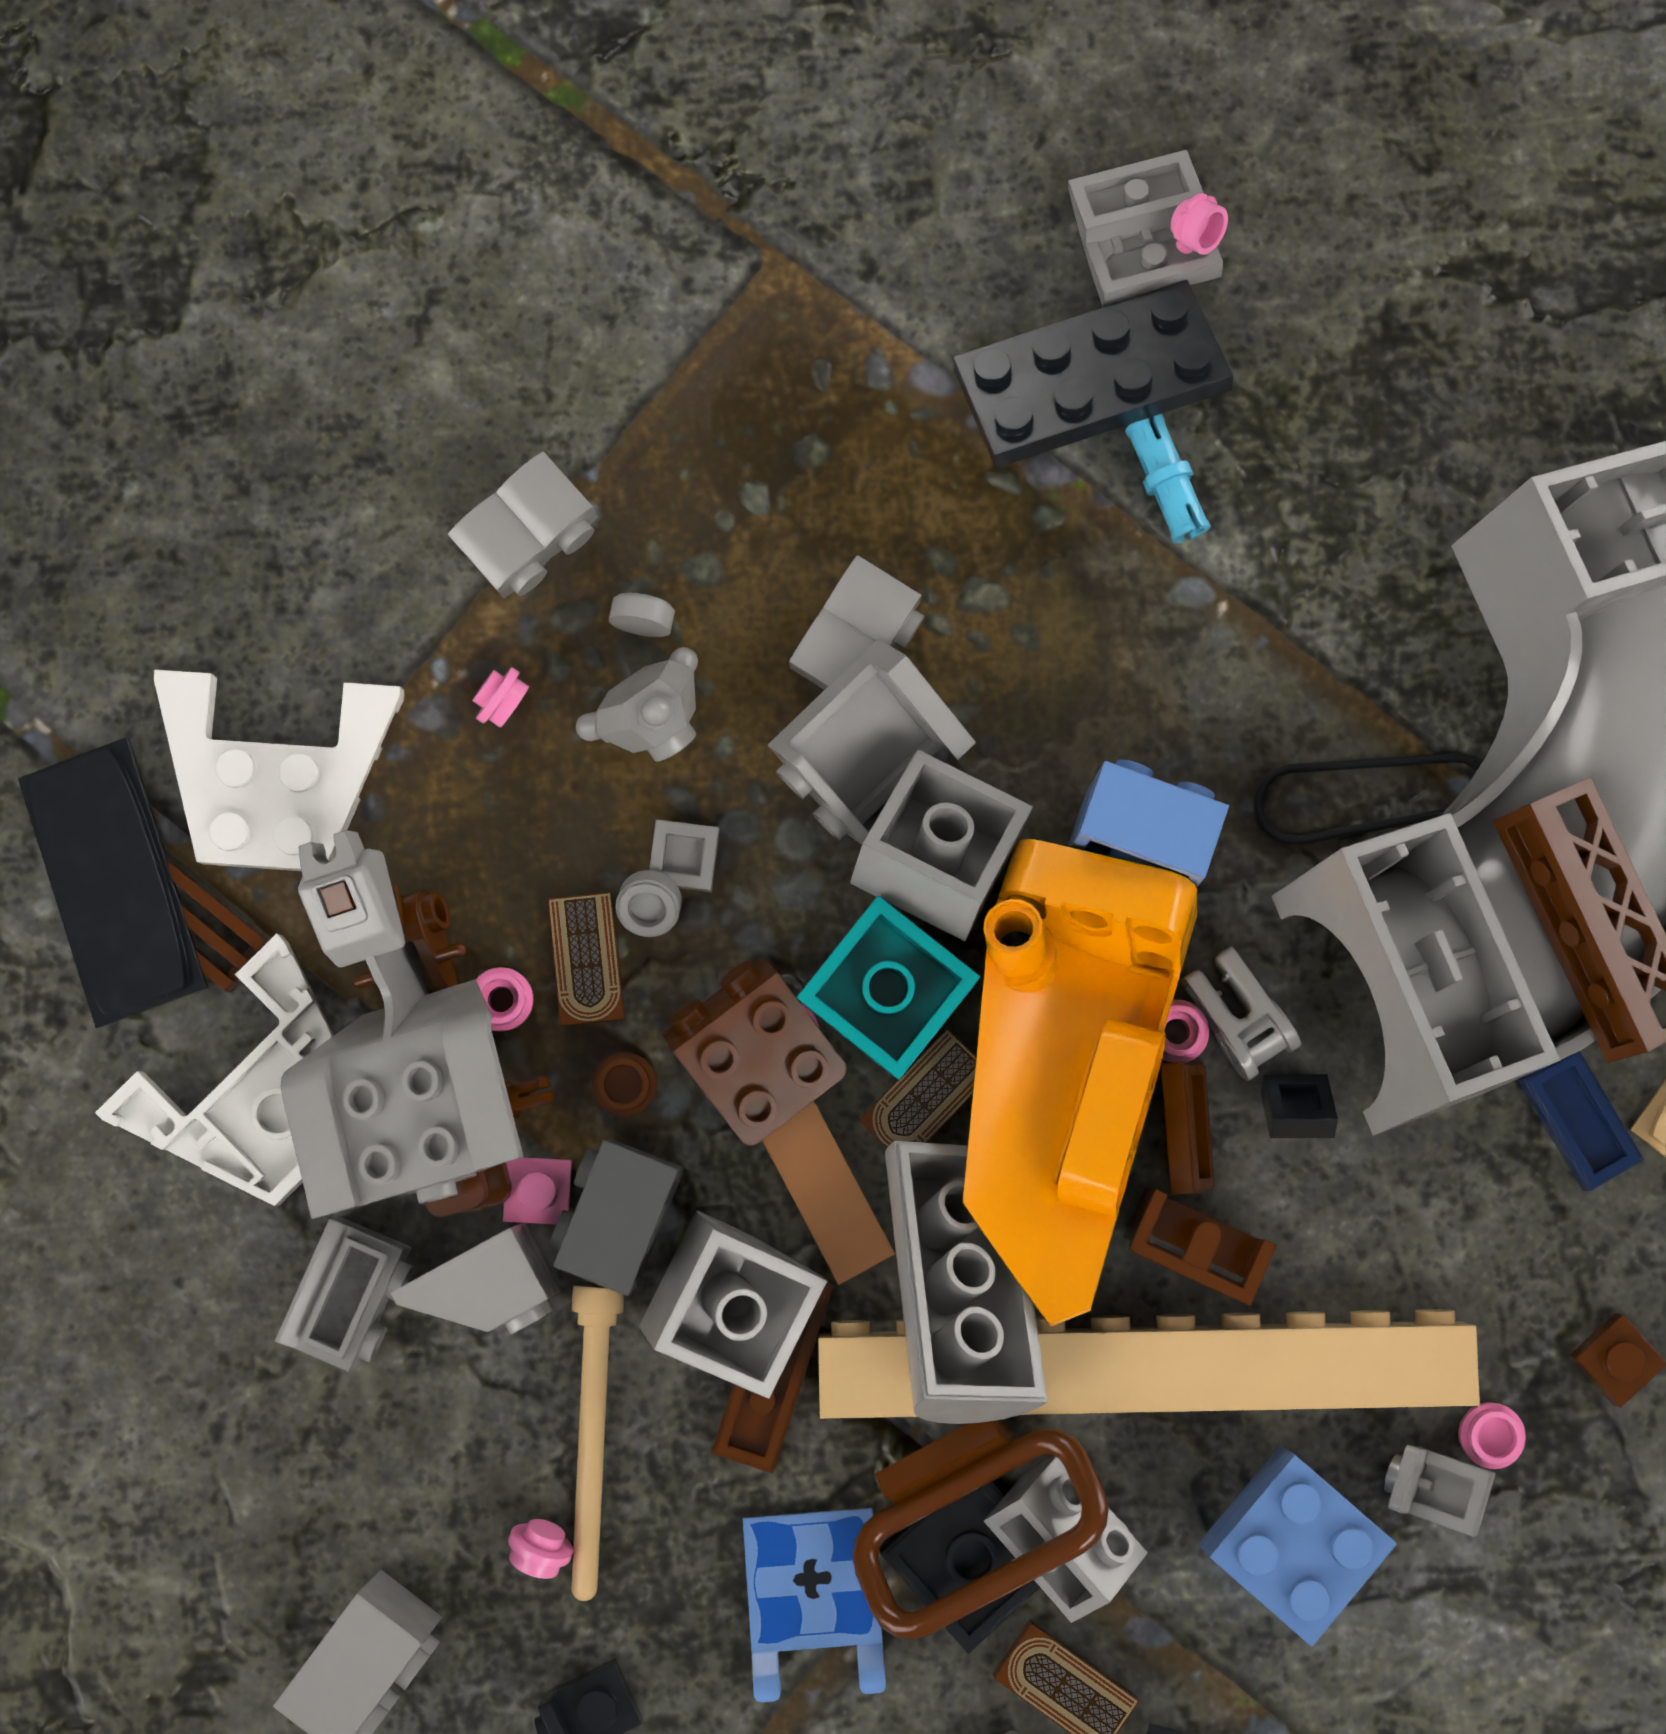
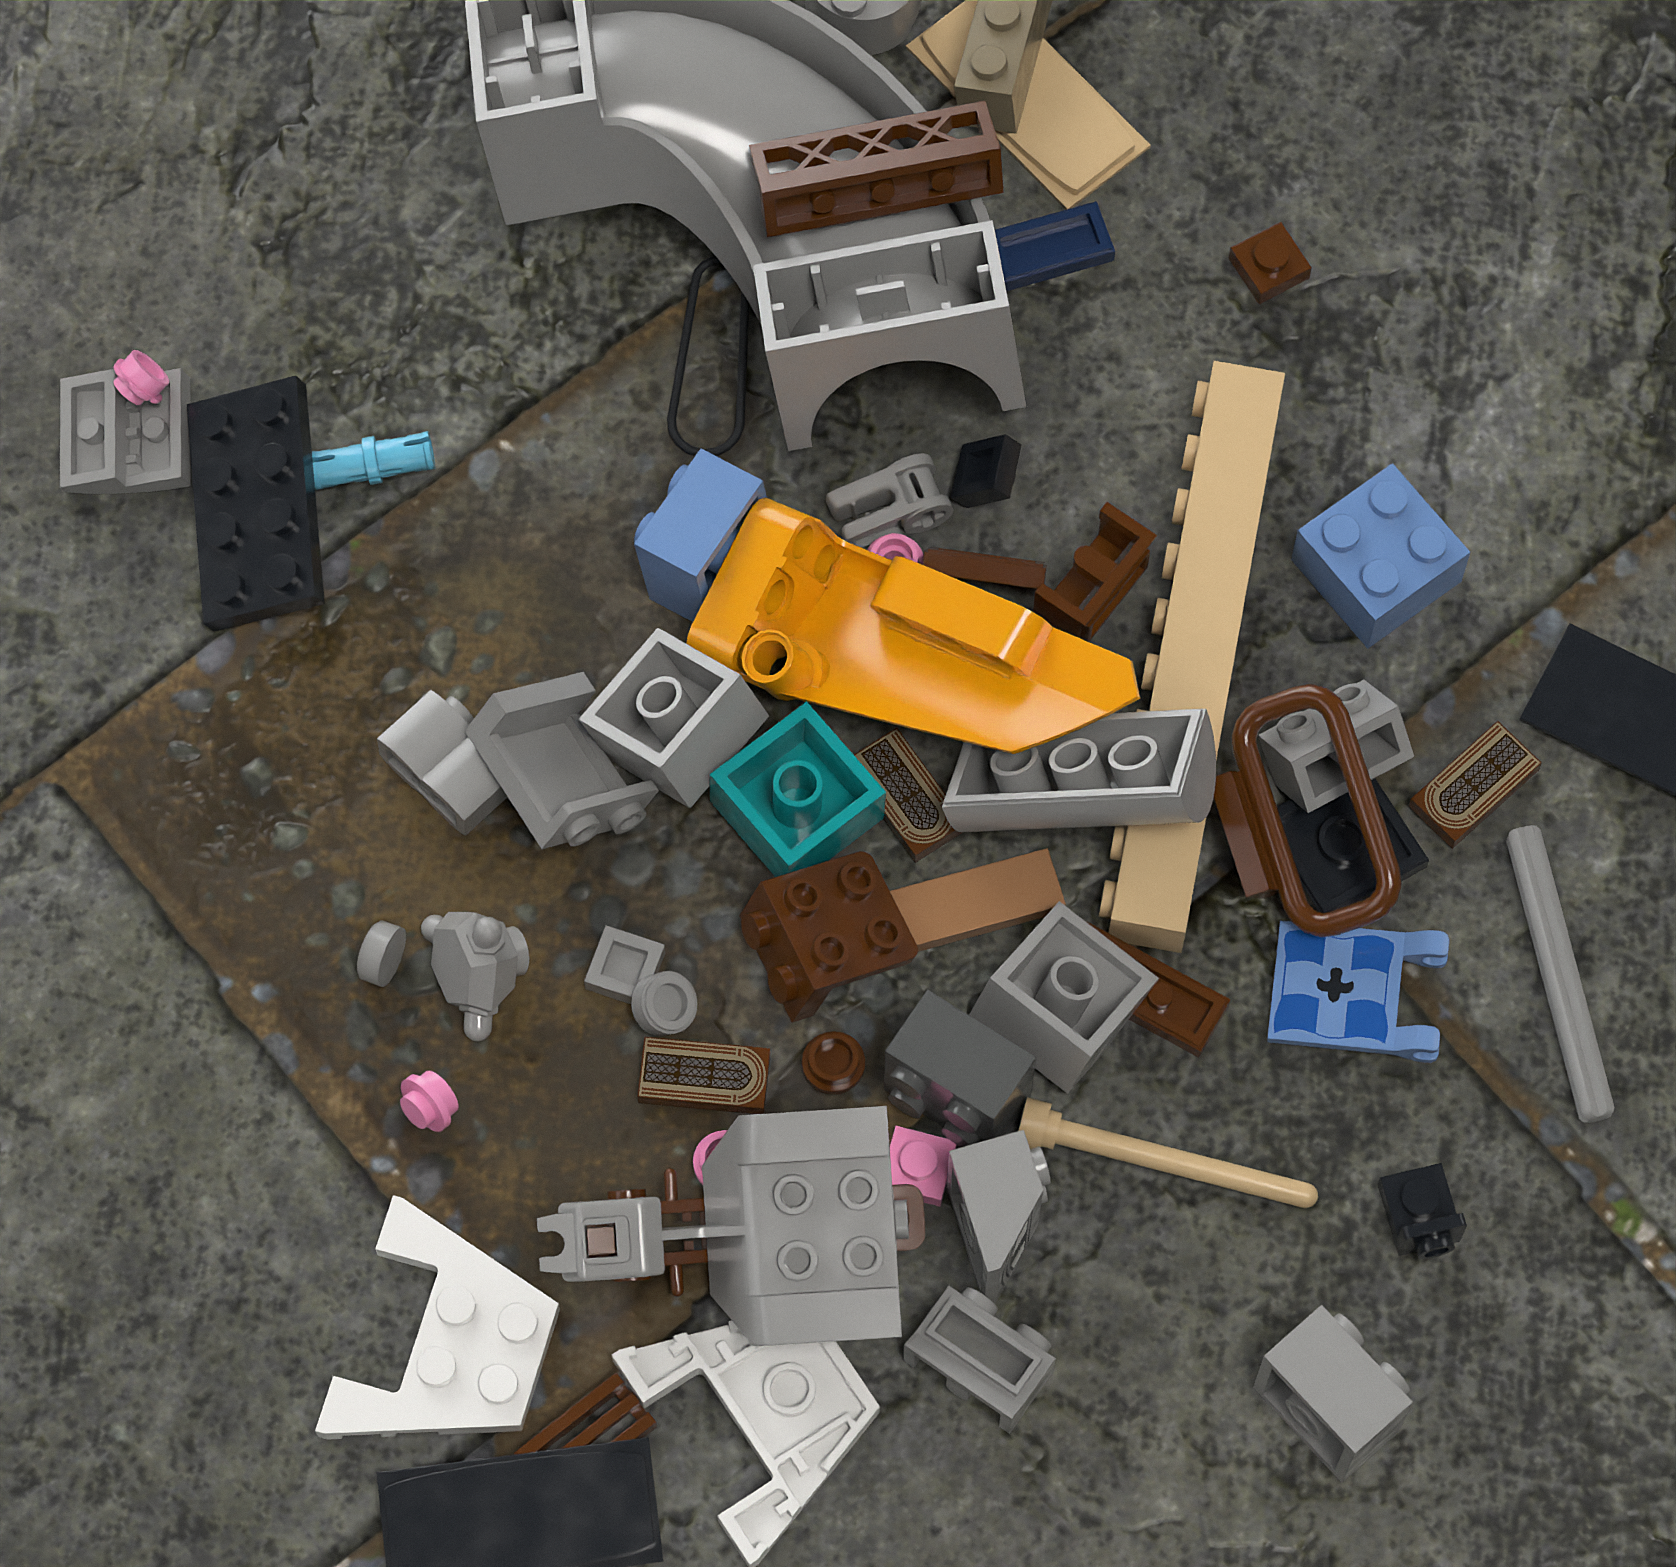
camera: 75 degrees left, 15 degrees down
(525, 526) = (265, 1044): light grey brick -> none
(539, 1548) = (1259, 1222): bright pink plate -> none
(1439, 1489) = (1354, 428): light grey bracket -> none
(1491, 1435) = (1316, 378): bright pink plate -> none

